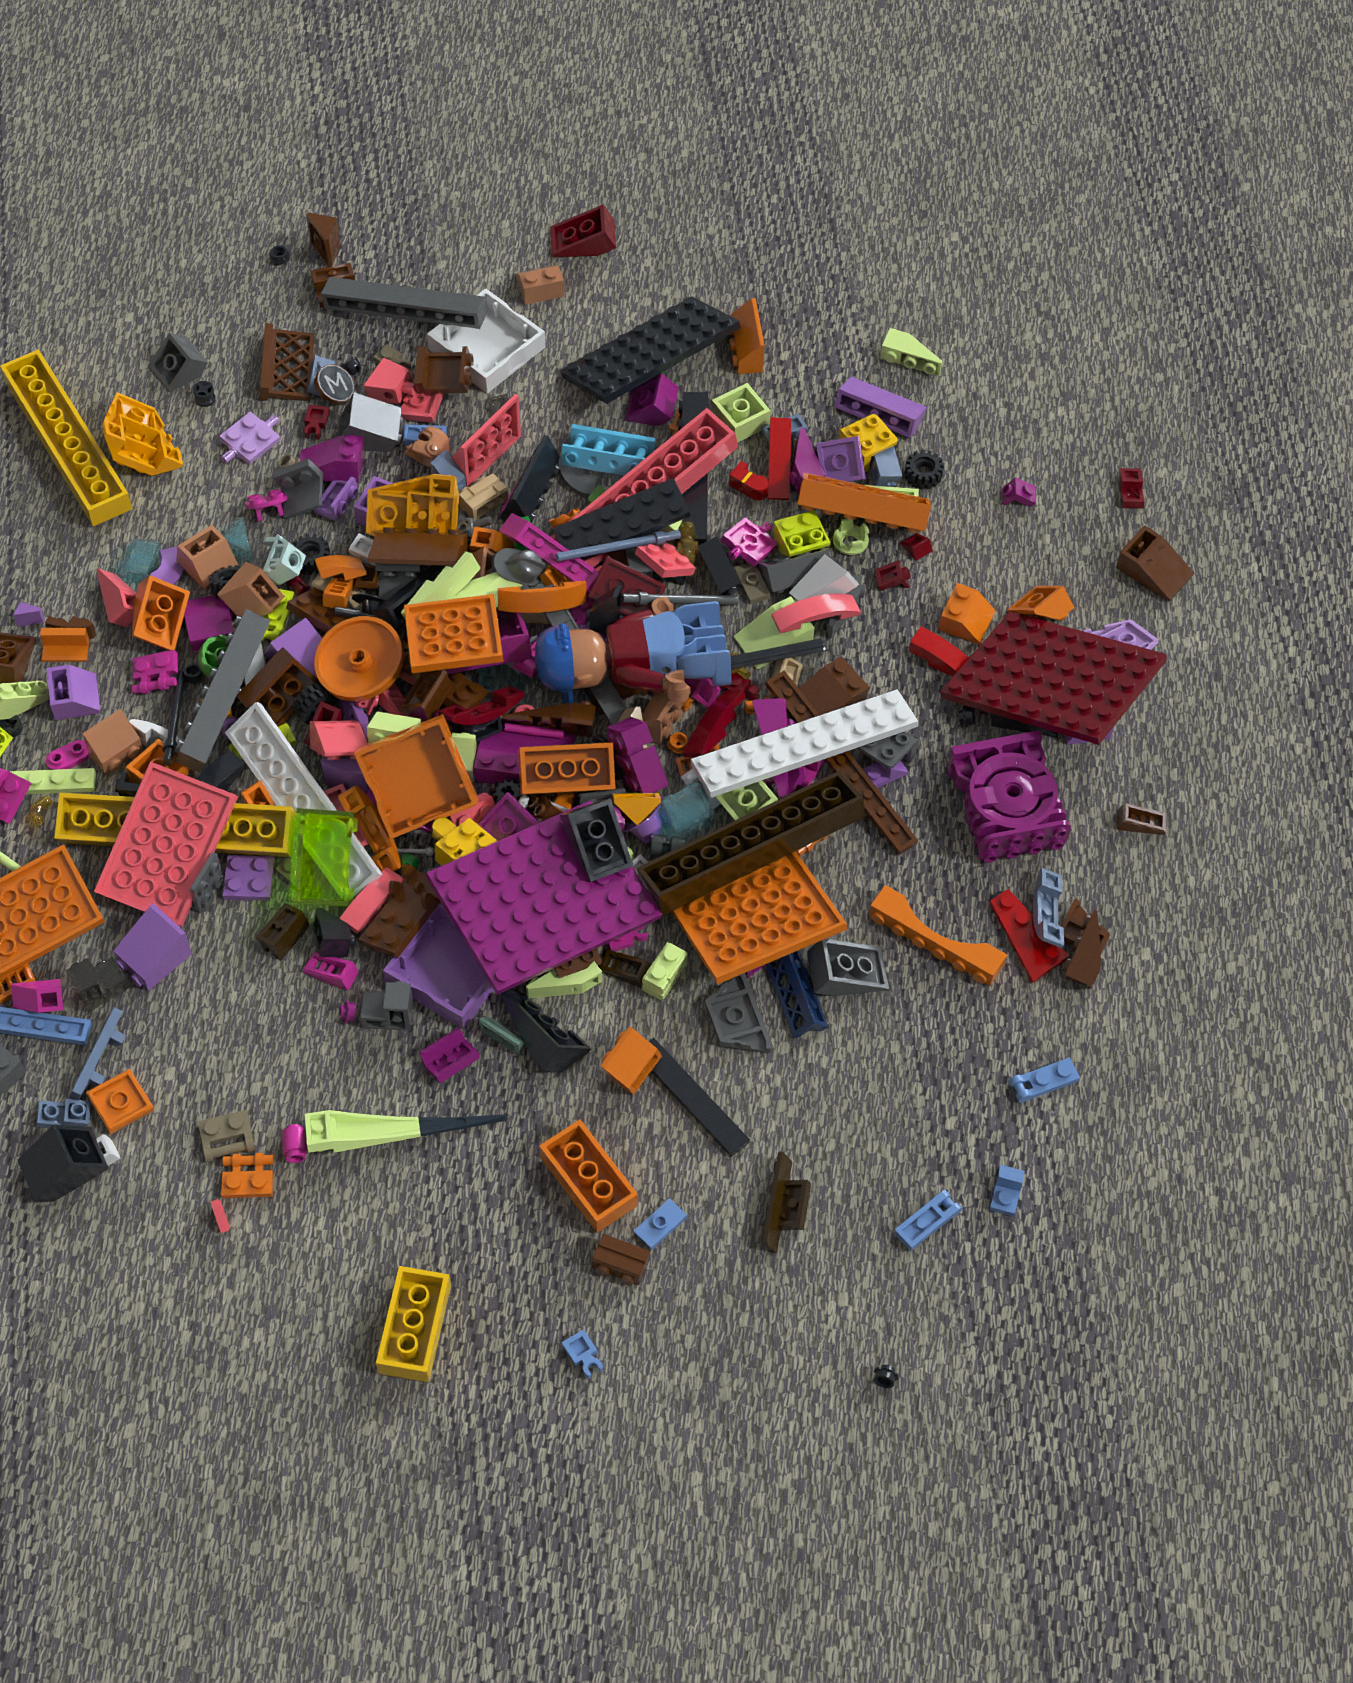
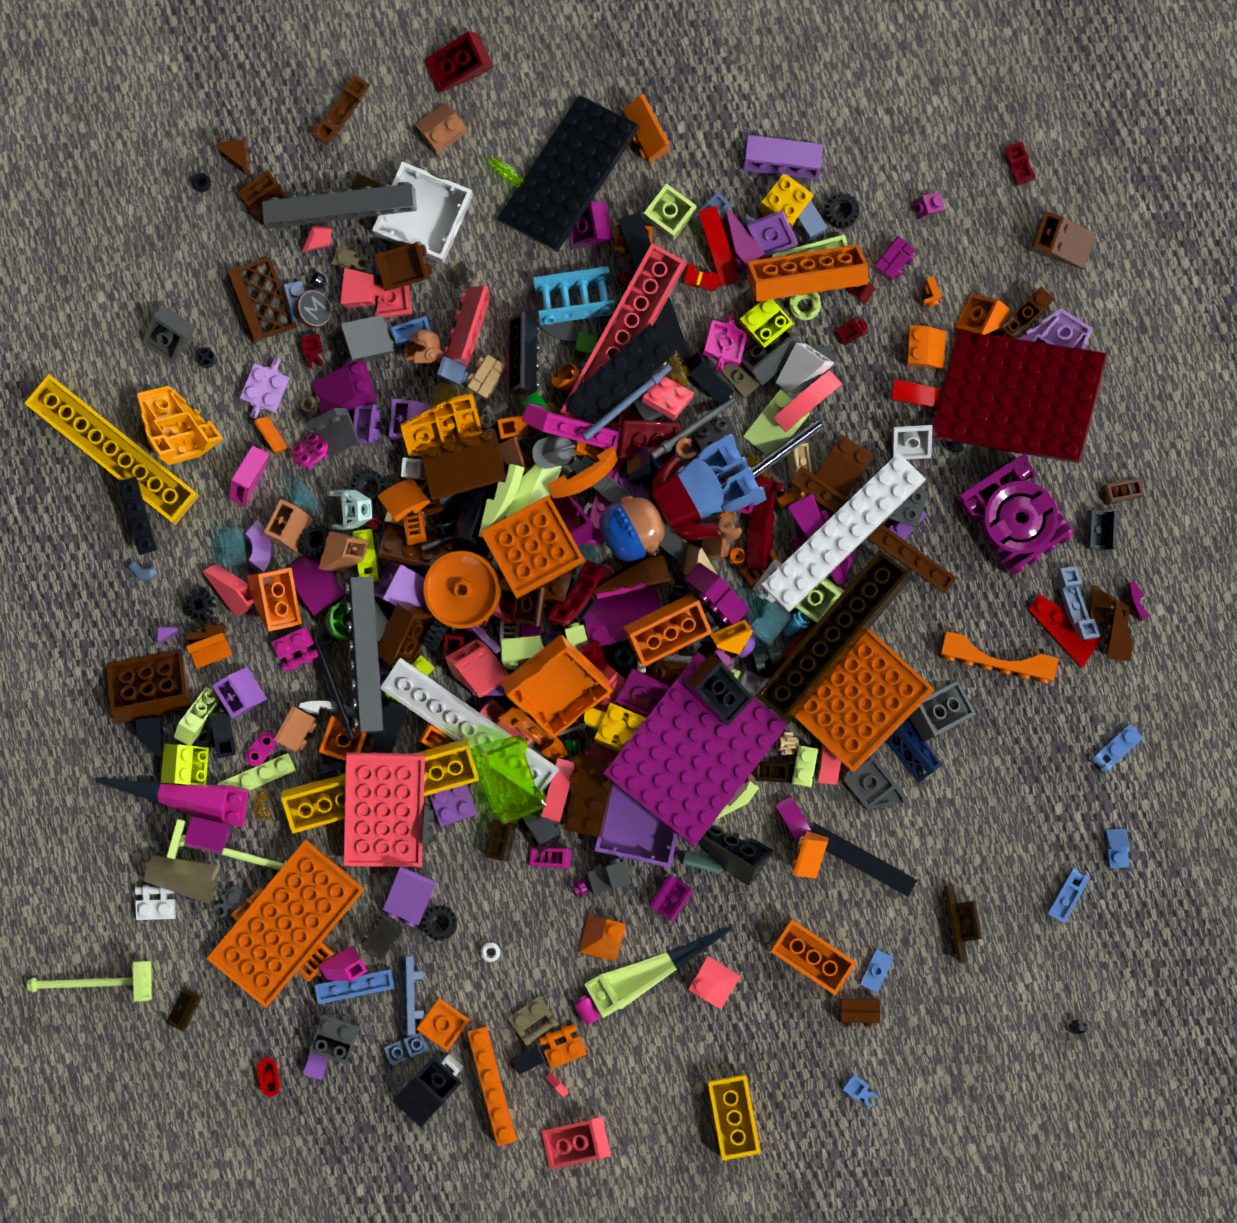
camera: 20 degrees left, 25 degrees up
(32, 721) = (222, 734): none -> black slope
(36, 557) = (142, 574): none -> sand blue arm
(57, 495) = (137, 515): none -> black bracket
(77, 601) = (205, 601): none -> black gear
(135, 1213) = (492, 1086): none -> orange arch
(167, 980) = (451, 923): none -> black tyre
(190, 502) = (248, 475): none -> dark pink slope
(199, 1174) = (528, 1059): none -> black piece
(211, 1288) = (576, 1143): none -> coral slope
(213, 1038) = (485, 956): none -> white plate
(234, 478) = (271, 435): none -> orange slope
(351, 1073) = (602, 938): none -> orange slope
(370, 331) = (317, 238): none -> coral piece
(457, 1167) = (714, 982): none -> coral slope
(467, 231) = (342, 110): none -> reddish brown slope
(477, 773) = (595, 654): none -> dark red bracket
(588, 335) = (506, 171): none -> clear neon green pin
(627, 1014) = (792, 817): none -> magenta slope
(654, 940) = (787, 743): none -> tan gear
(694, 981) = (829, 767): none -> coral slope
(716, 821) = (797, 623): none -> medium azure cone
(908, 351) = (783, 87): yellowish green slope -> none
(921, 692) = (912, 441): none -> white slope
(964, 527) = (894, 259): none -> magenta brick
(993, 570) = (931, 288): none -> orange bracket
(1095, 614) = (1027, 312): none -> reddish brown slope
(1103, 848) = (1101, 530): none -> black bracket
(1120, 931) = (1135, 595): none -> magenta slope

